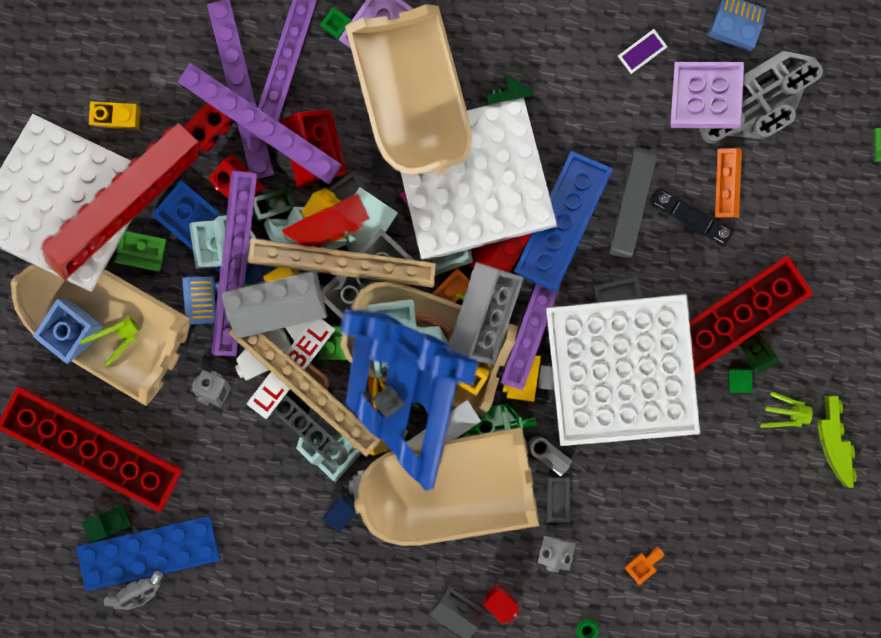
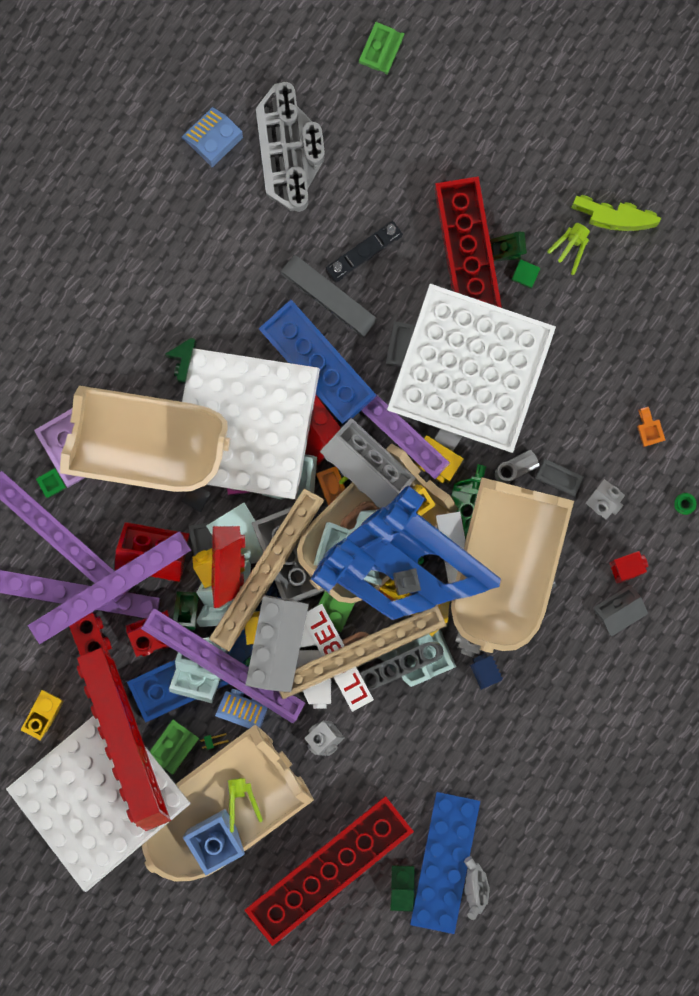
camera: 65 degrees left, 5 degrees down
(161, 282) = (209, 743): none -> piece
(642, 52) = (200, 229): dark purple tile -> none
(707, 95) = (264, 189): lavender plate -> none
(728, 183) = (349, 206): orange plate -> none

